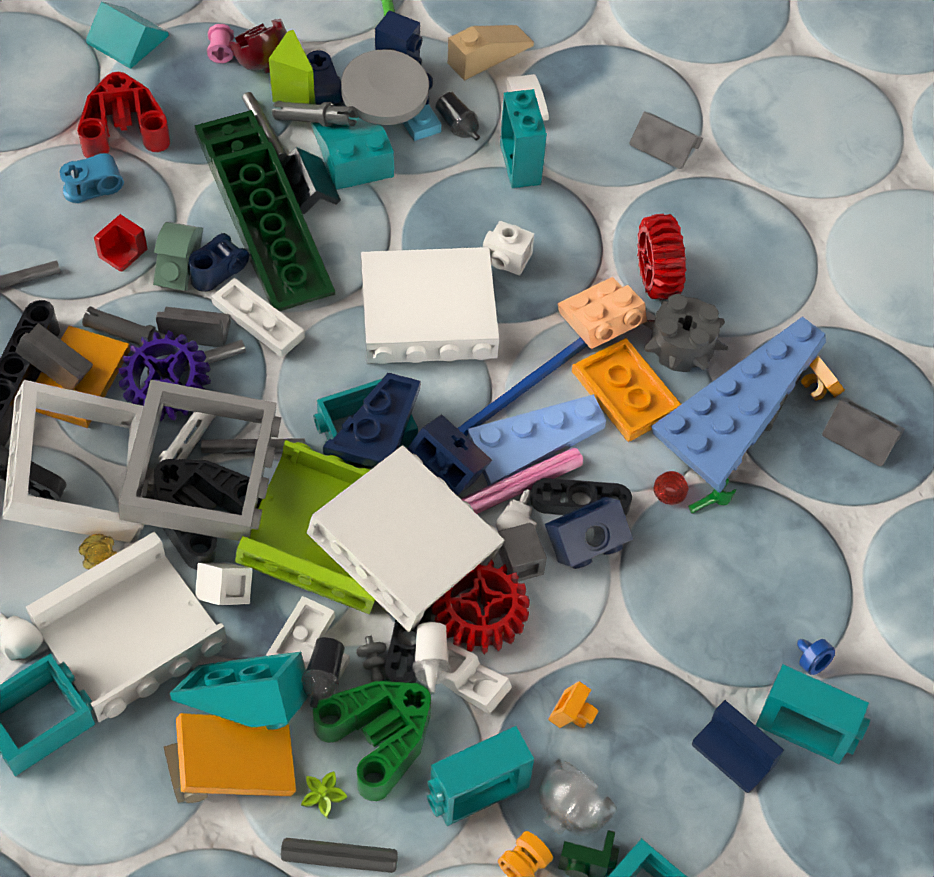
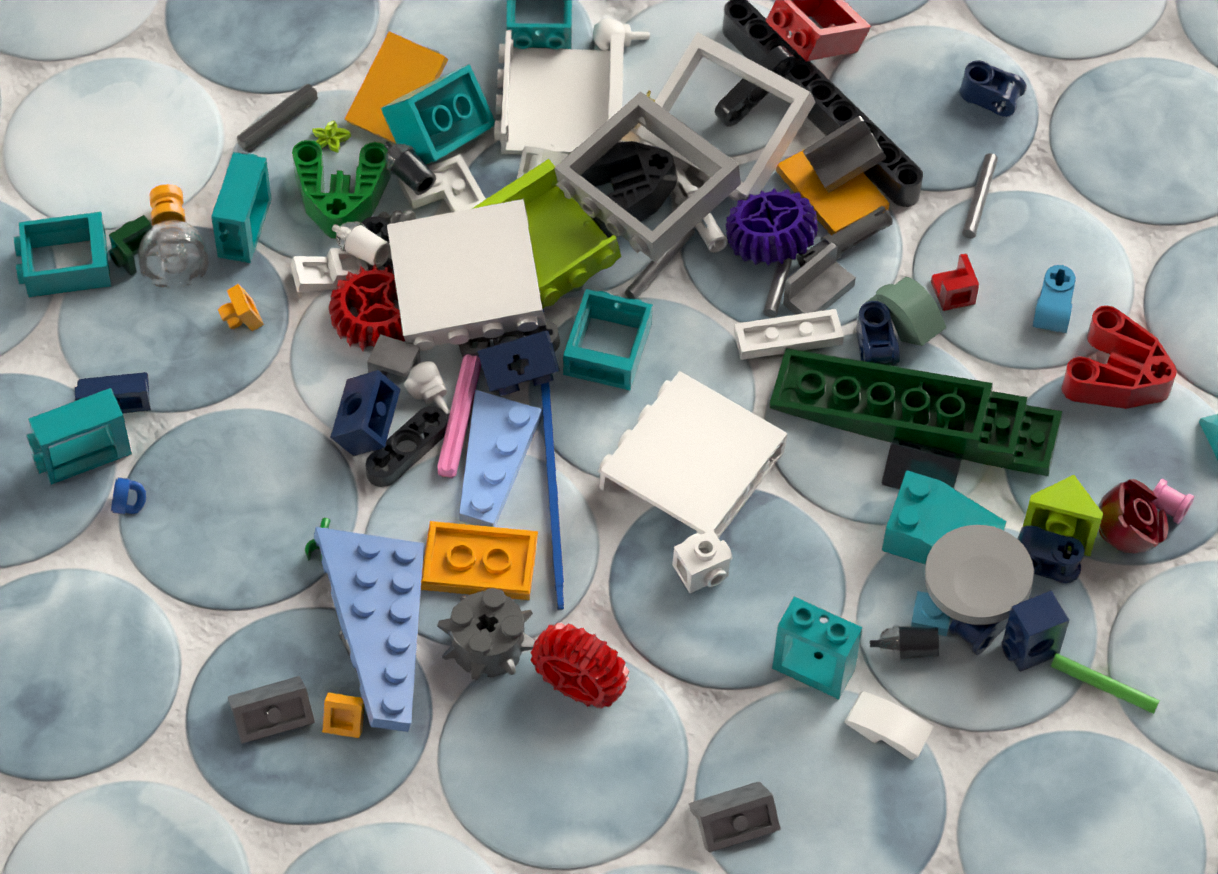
camera: 130 degrees right, 0 degrees up
(252, 104) = (1015, 476): flat silver bar -> none
(325, 114) = (989, 511): dark grey pin -> none
(378, 424) = (582, 317): dark blue wing -> none
(485, 47) = (990, 738): tan slope -> none
(603, 312) = (567, 586): light nougat plate -> none
(670, 480) = (352, 507): clear red plate -> none

